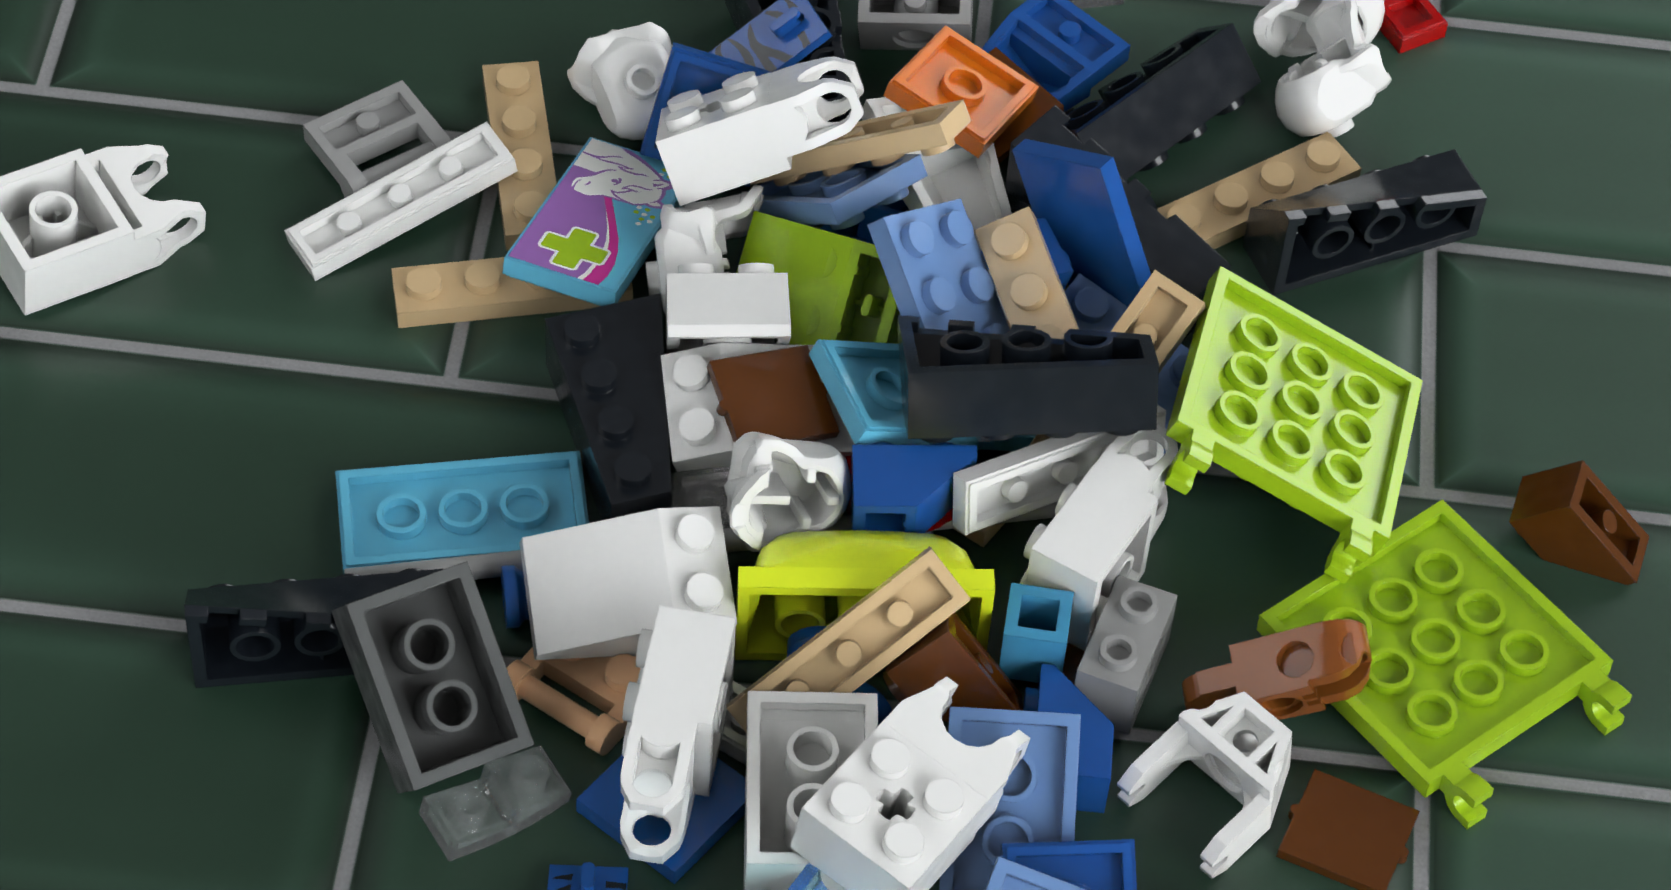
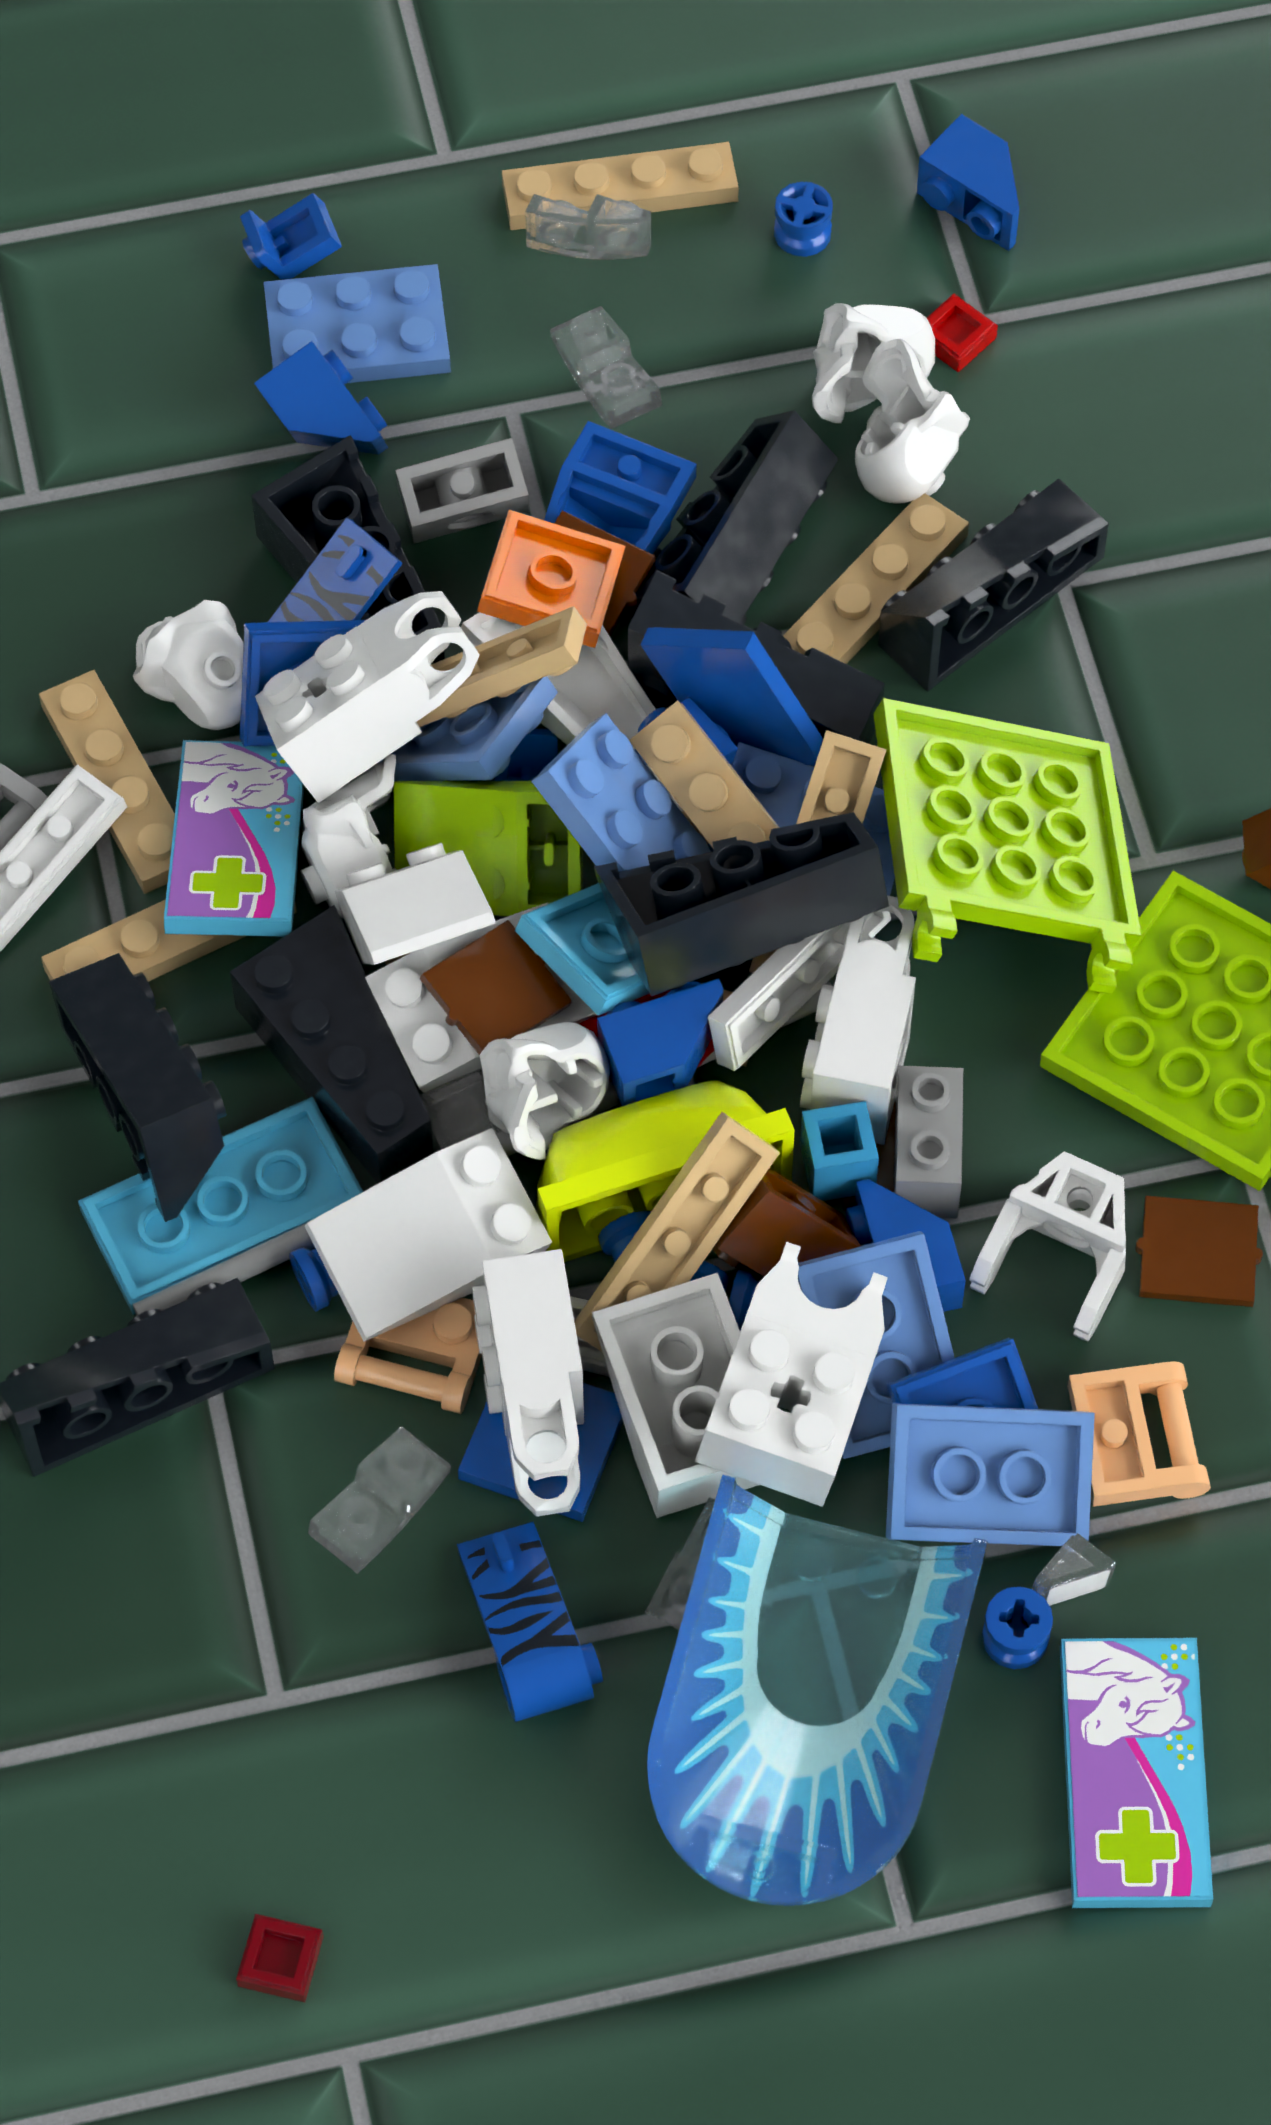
camera: 15 degrees left, 10 degrees up
(432, 382) = (142, 1077): none -> black wedge
(432, 678) = (280, 1401): dark grey brick -> none
(1290, 670) = (1091, 1111): dark orange piece -> none

